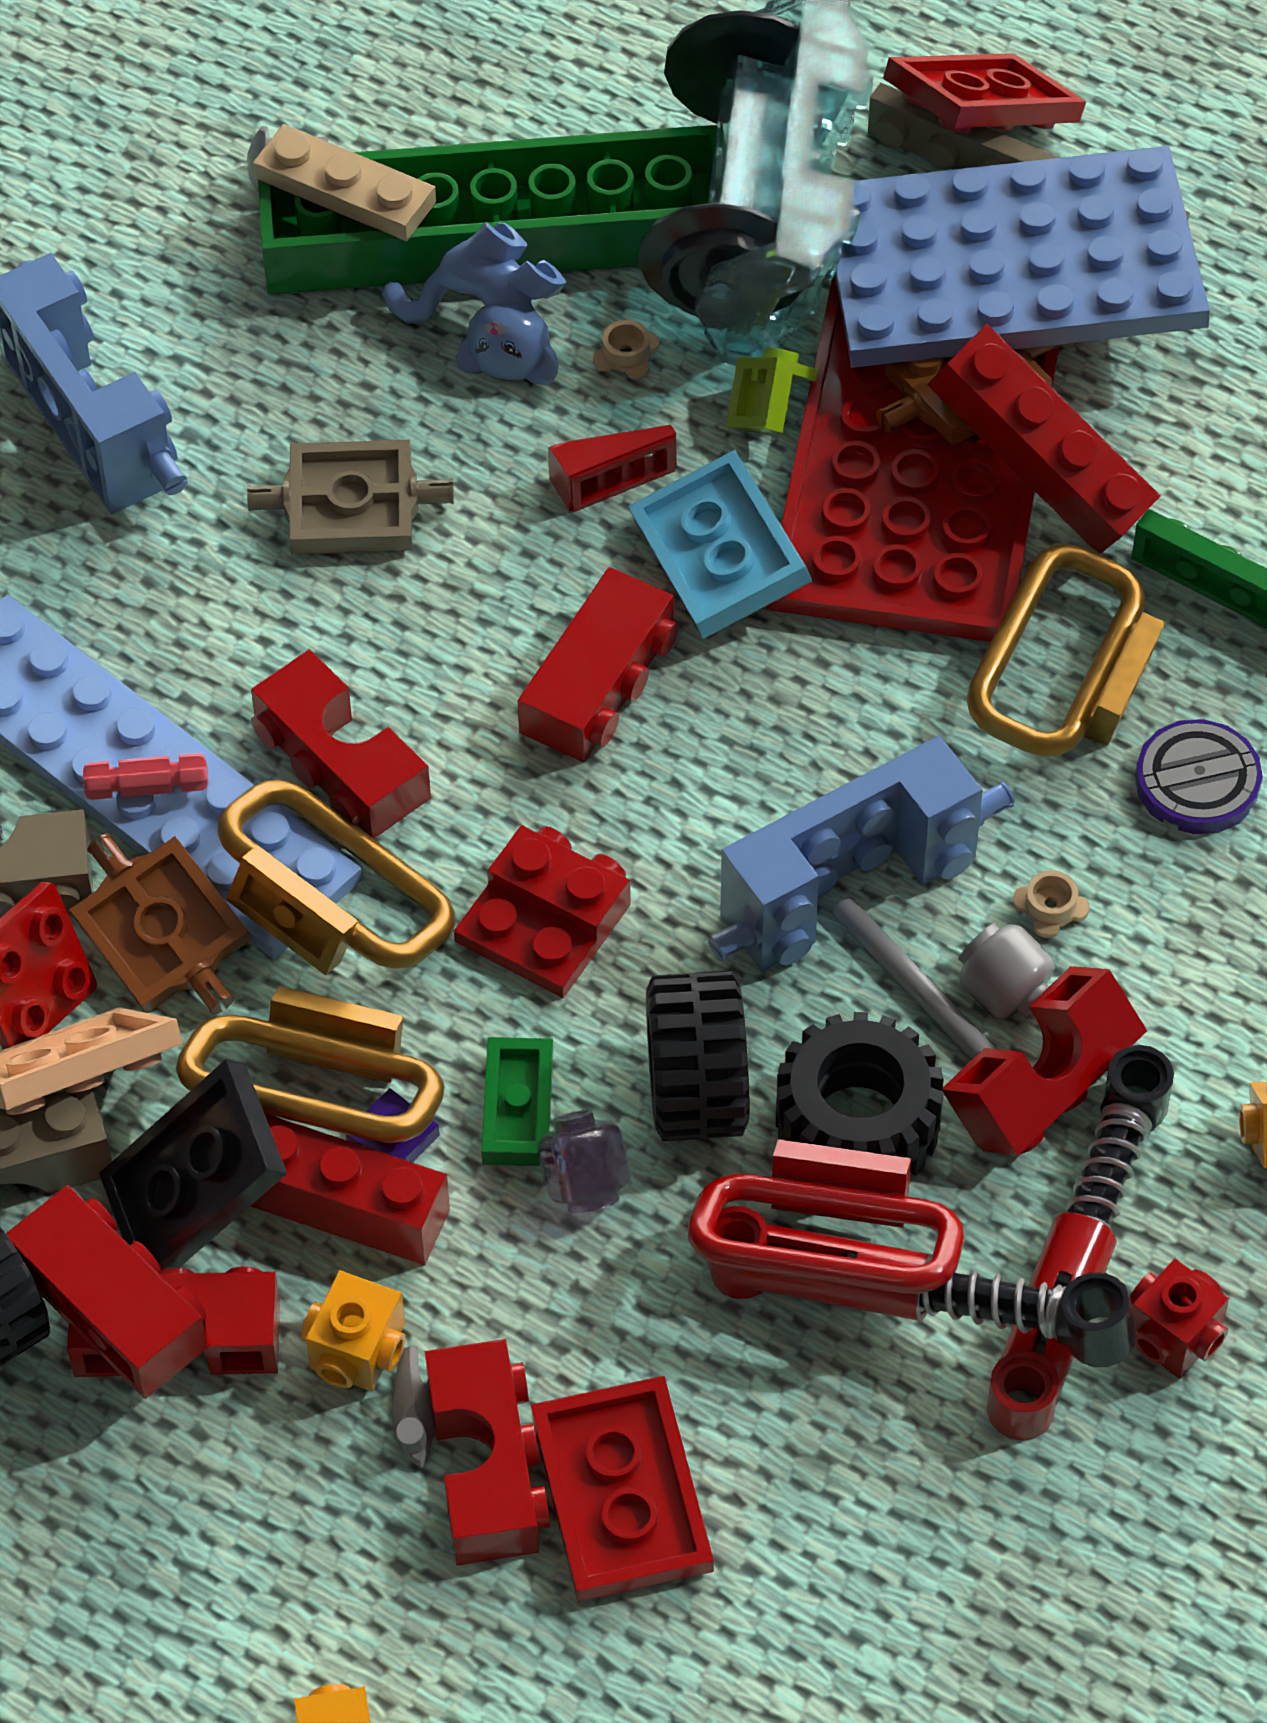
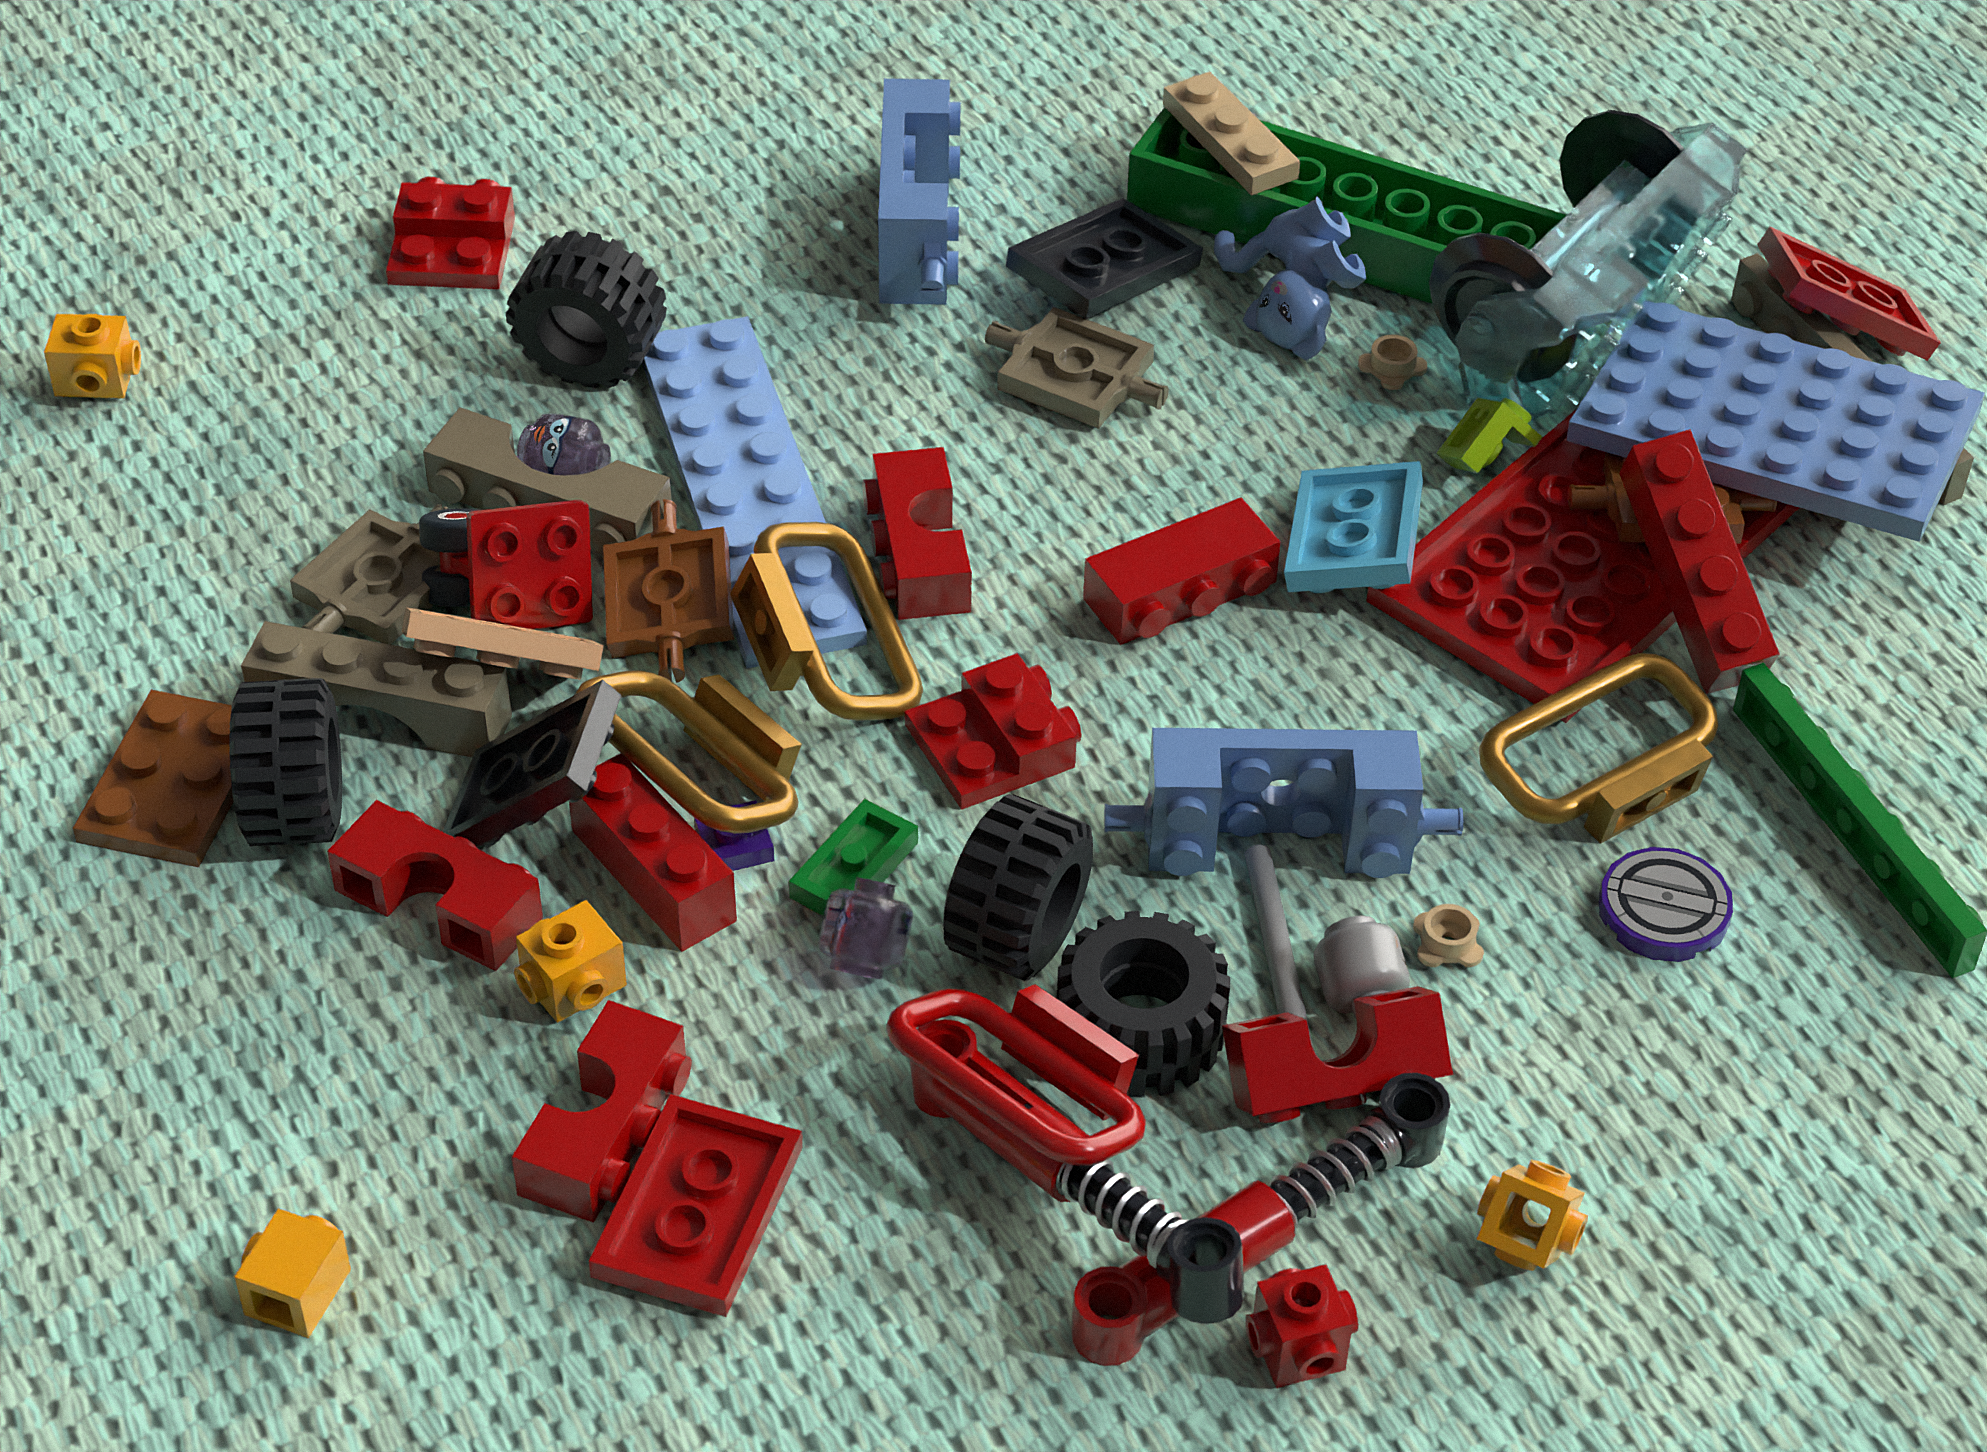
camera: 30 degrees right, 10 degrees down
(110, 1290) = (386, 816): red brick -> none
(145, 776) = (739, 479): coral axle -> none
(298, 367) = (1103, 257): none -> black plate
(412, 1410) = (560, 1065): light grey bar -> none
(610, 464) = (1284, 417): red slope -> none

